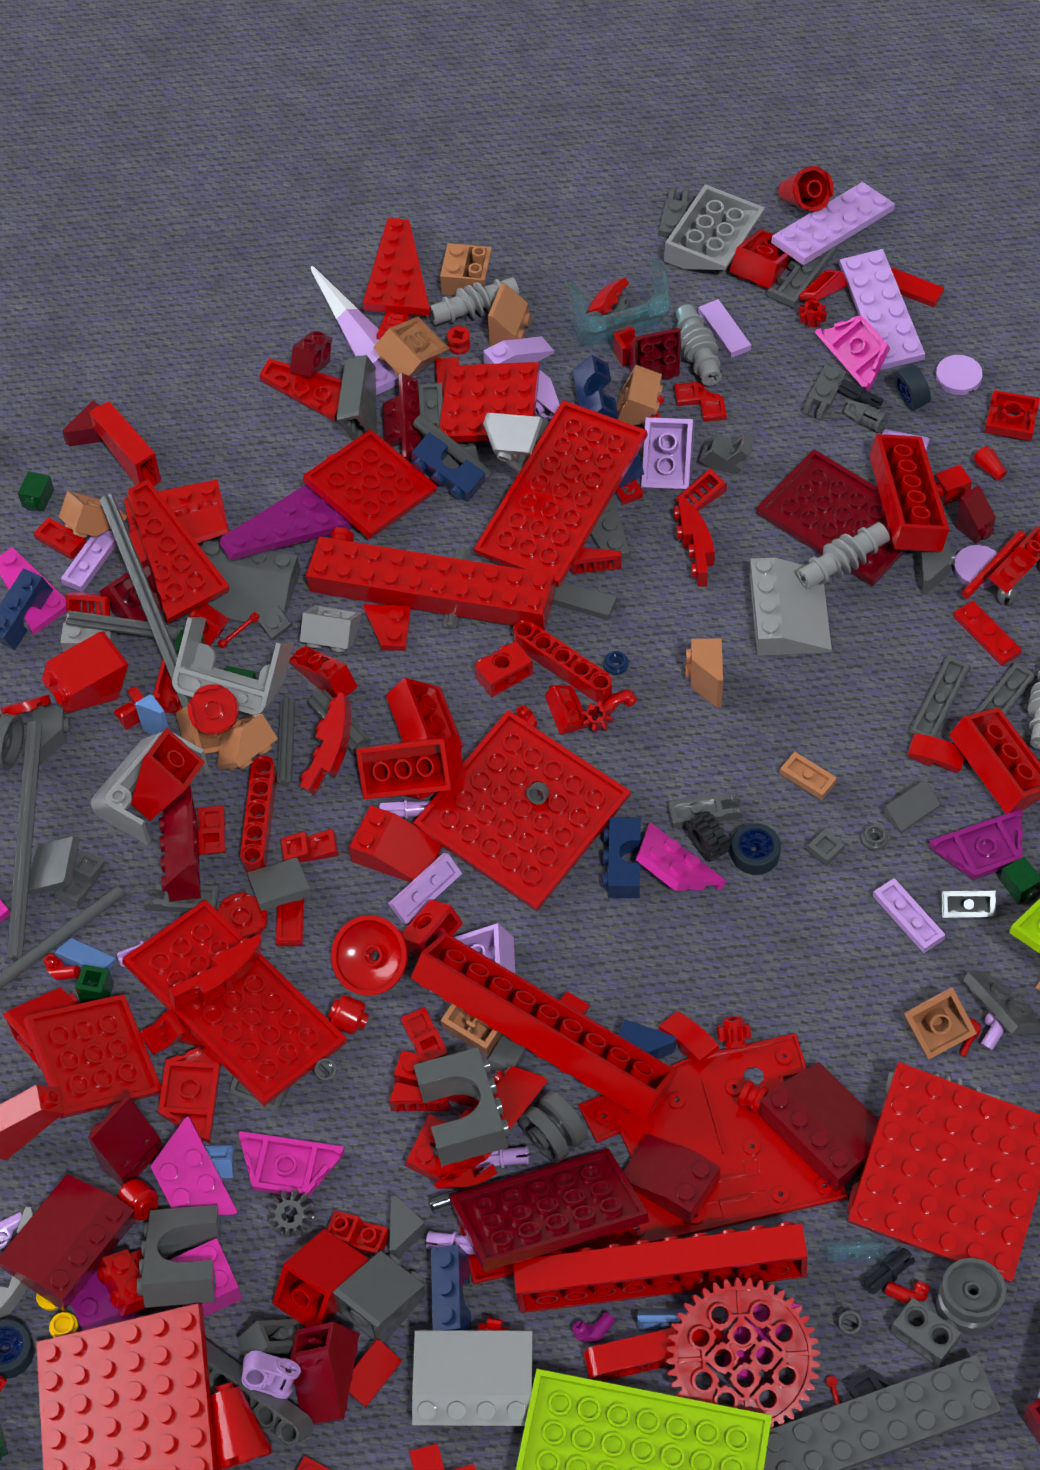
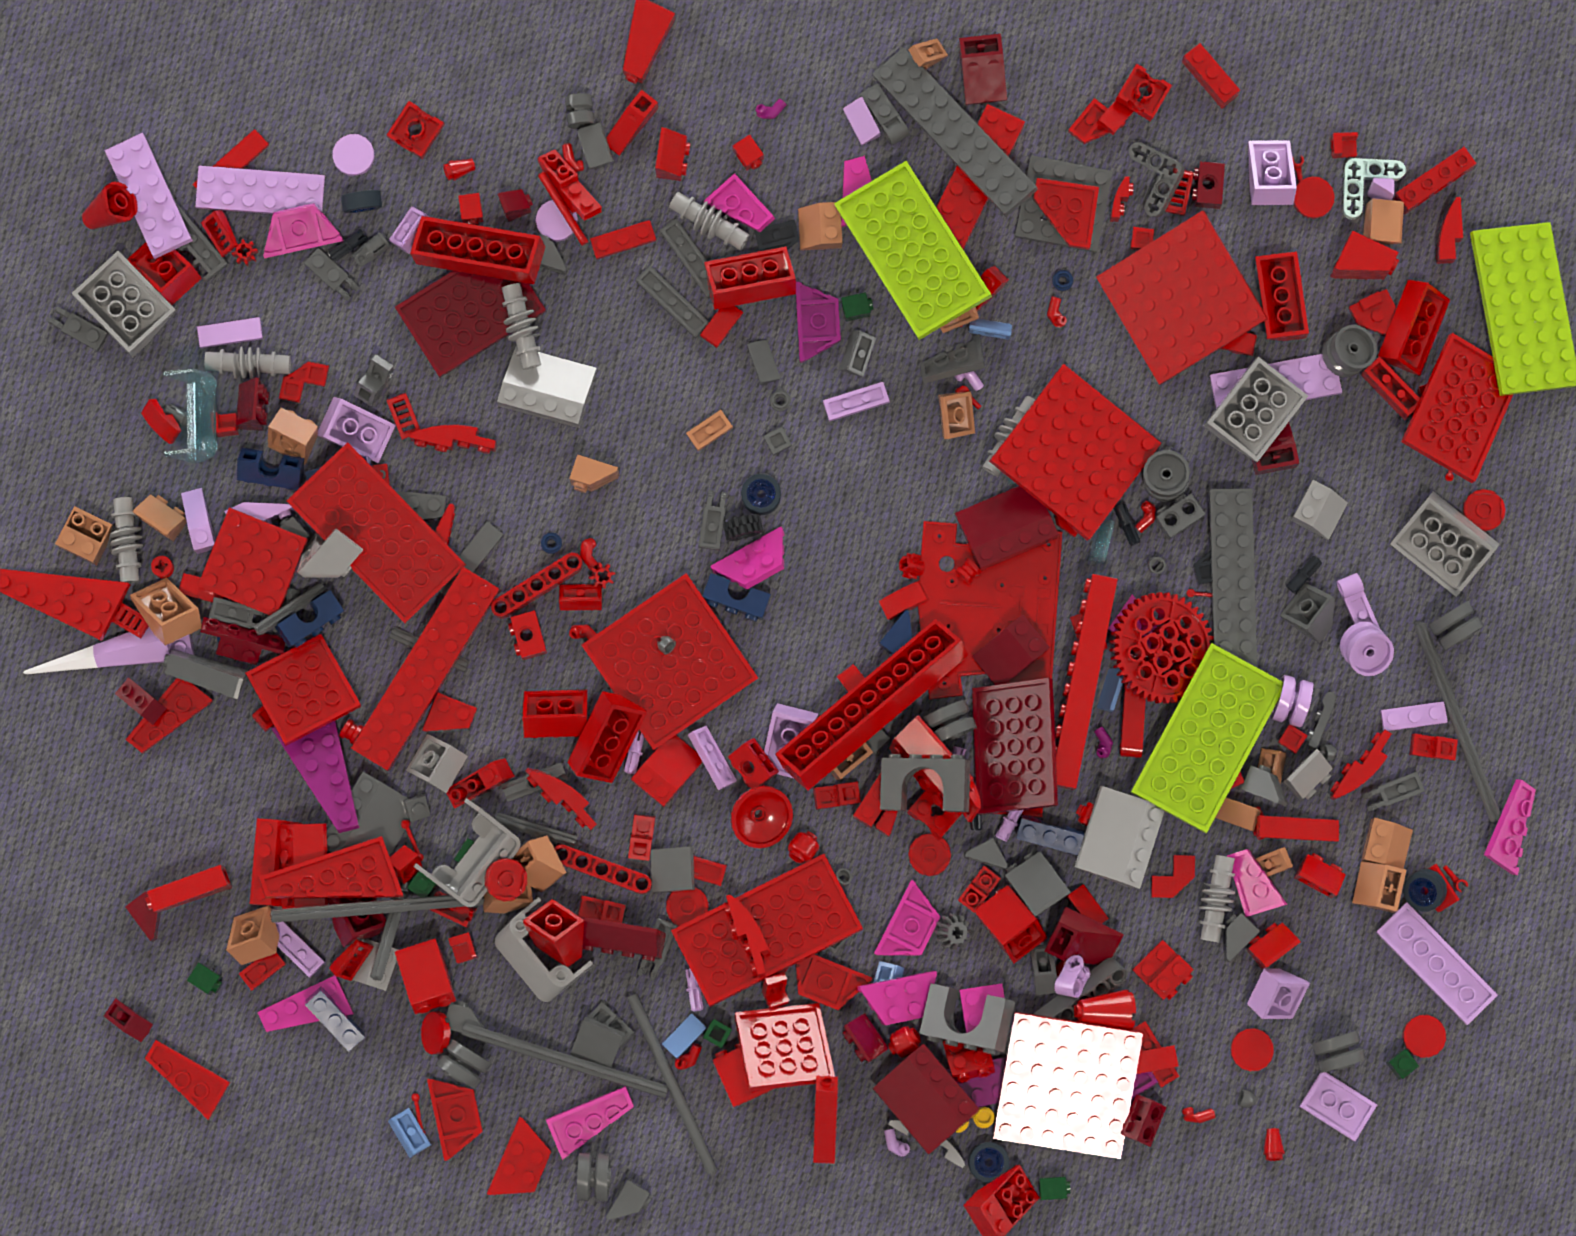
camera: 75 degrees left, 25 degrees up
(151, 715) = (485, 929): medium blue slope -> none
(383, 1171) = (932, 860): none -> red tile

